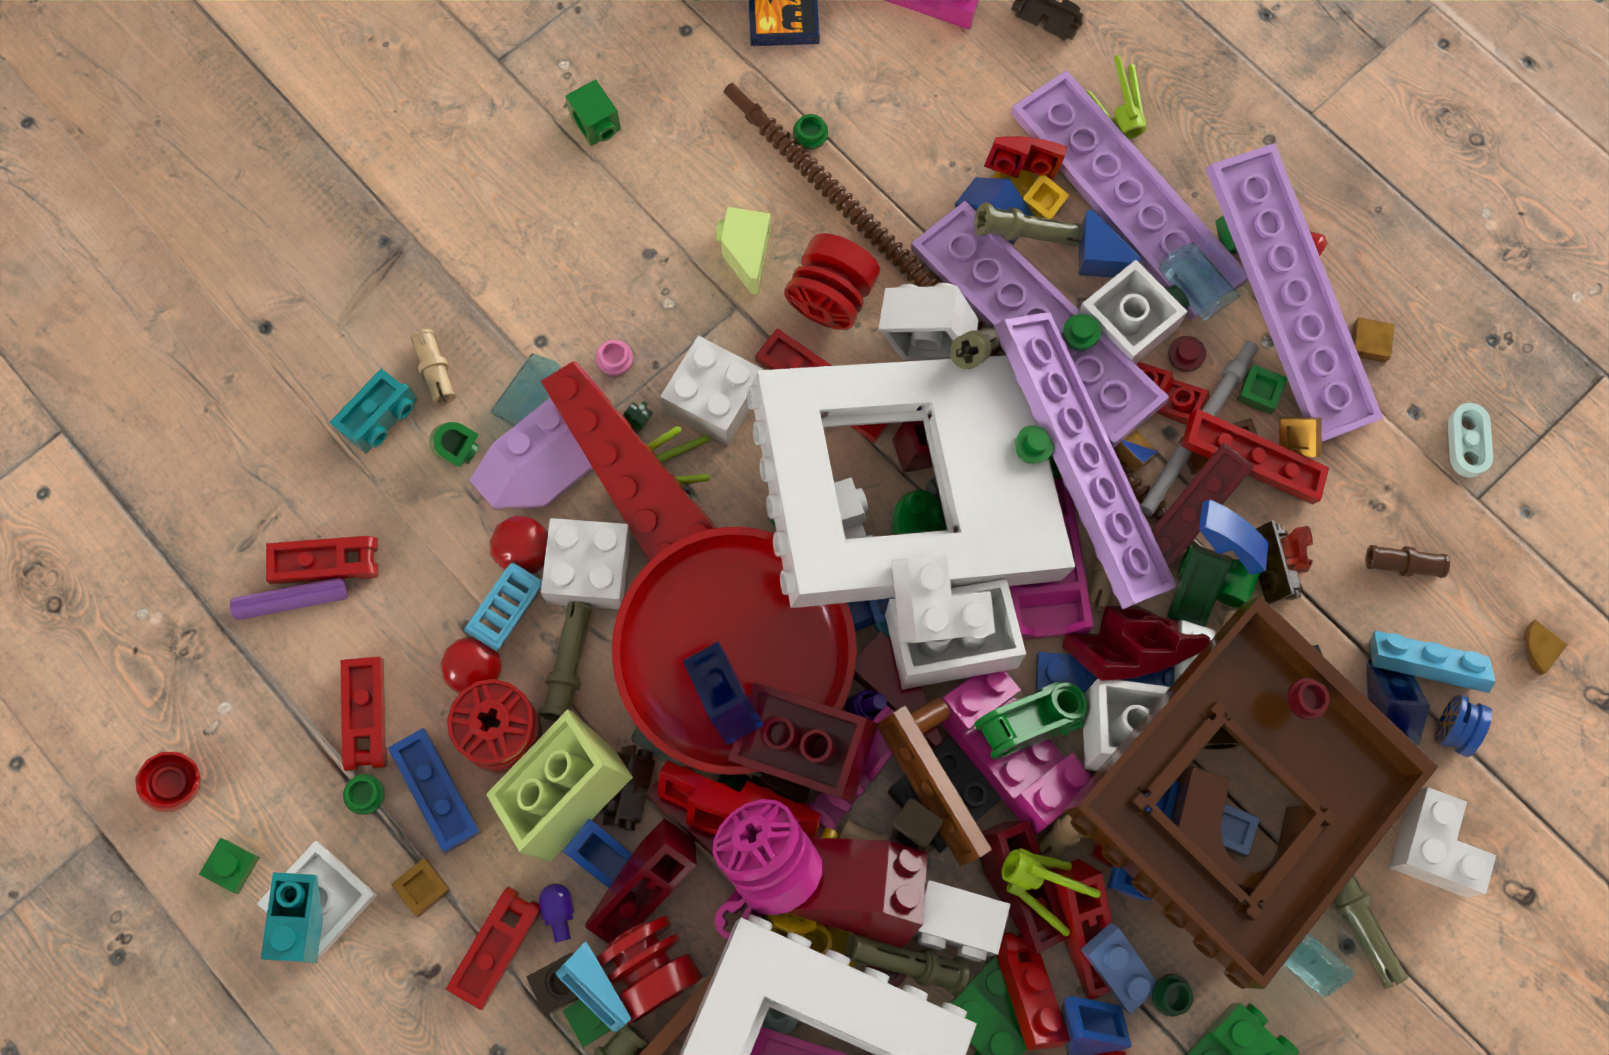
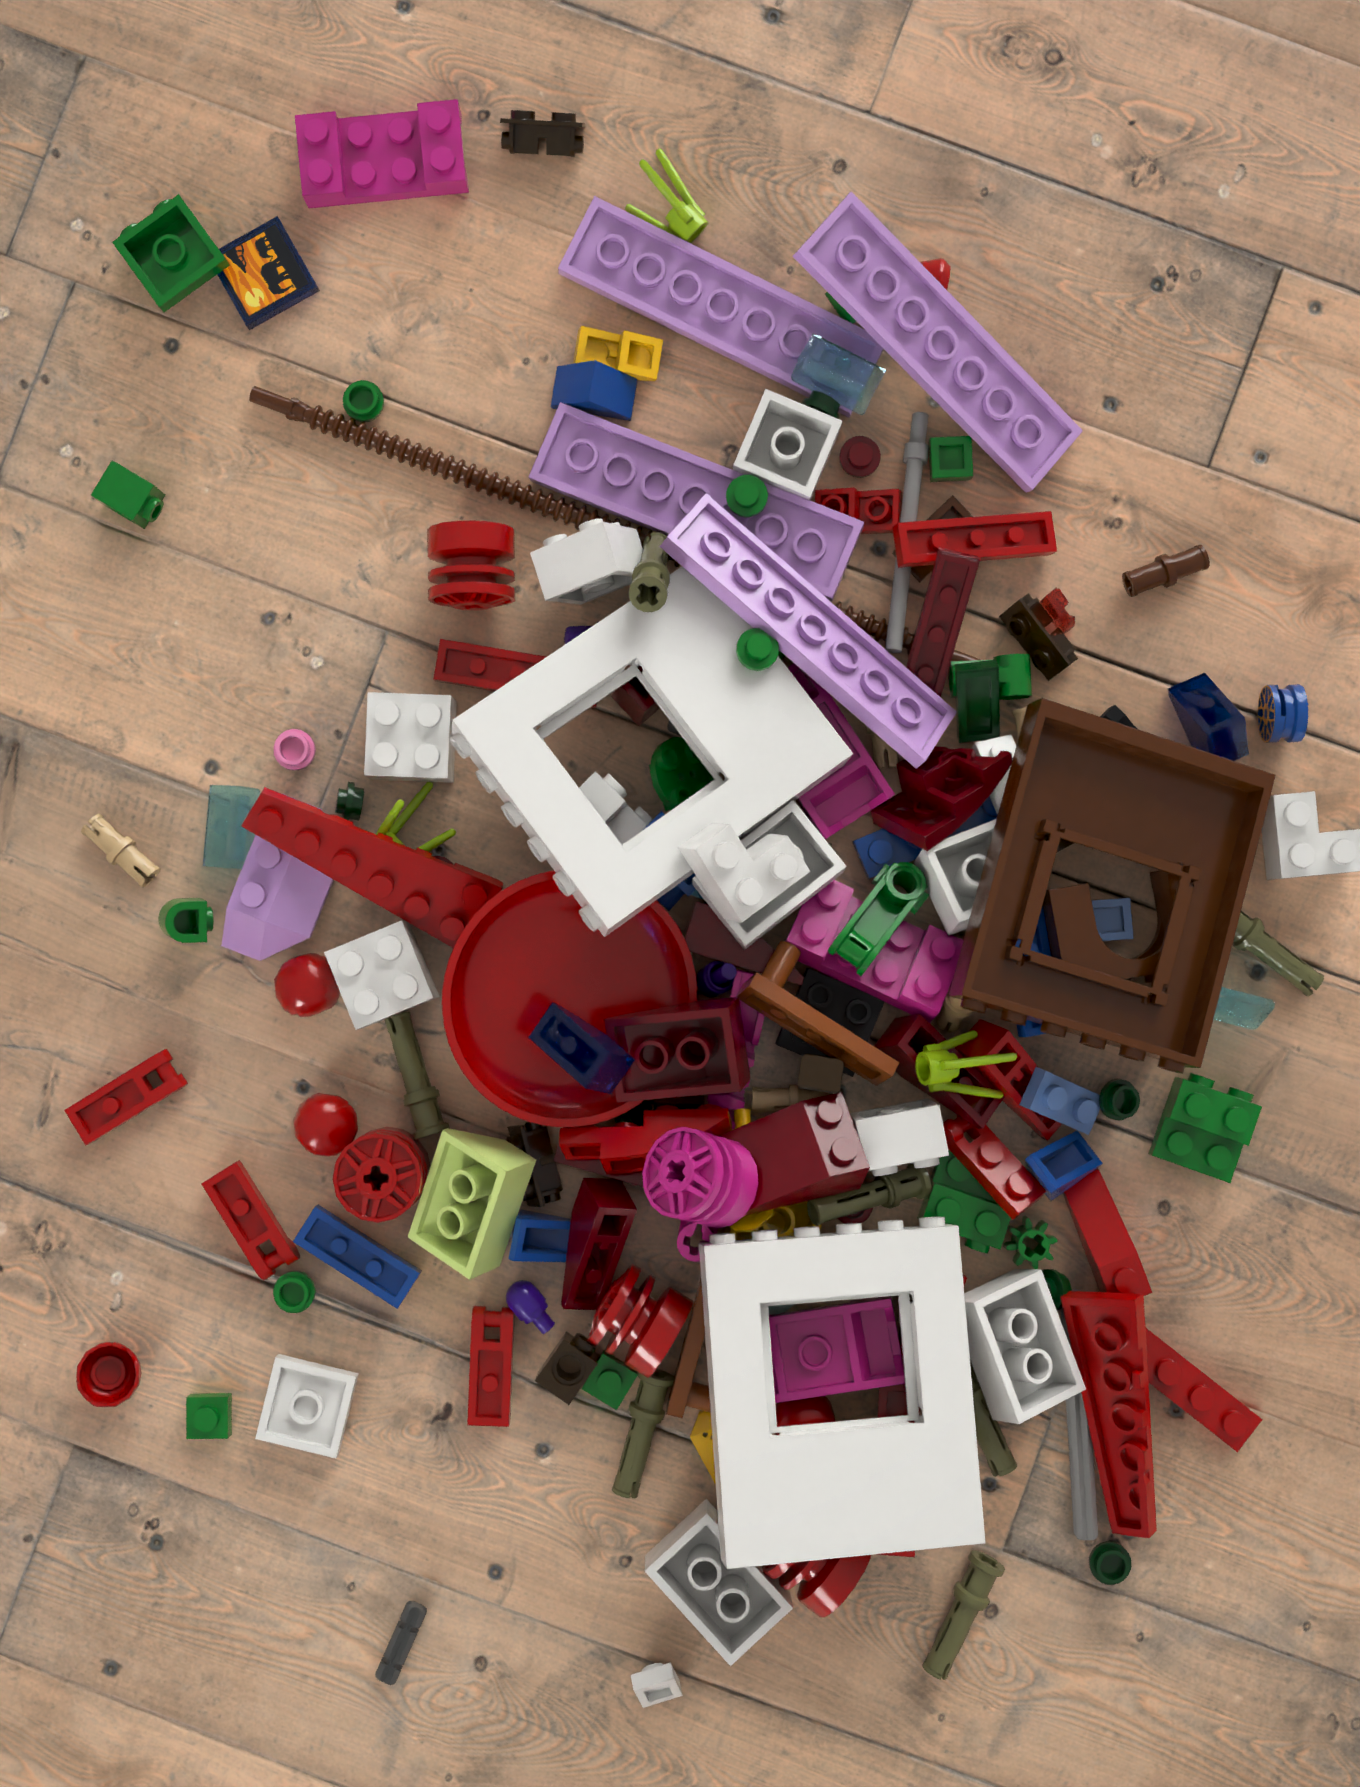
camera: 20 degrees left, 15 degrees up
(288, 598) = (116, 1148): medium lavender axle -> none
(293, 919) = (299, 1442): teal slope -> none
(374, 411) = (90, 926): teal bracket -> none
(421, 887) = (394, 1346): pearl gold tile -> none
(518, 586) = (326, 1021): medium azure slope -> none
(591, 985) = (594, 1360): medium azure slope -> none
(745, 243) = (361, 562): yellowish green slope -> none
(1013, 224) = (624, 407): olive pin -> none
(1031, 154) = (584, 329): red slope -> none
(1102, 249) = (724, 386): blue slope -> none
(1135, 451) = (855, 589): pearl gold tile -> none
(1231, 532) = (986, 637): blue slope -> none
(1301, 435) = (1010, 492): pearl gold tile -> none
(1308, 698) = (1129, 777): dark red plate -> none
(1373, 339) = (1037, 346): pearl gold tile -> none
(1431, 661) = (1228, 662): medium azure plate -> none
(1471, 443) = (1180, 411): light aqua plate -> none
(1542, 647) = (1327, 592): pearl gold tile -> none

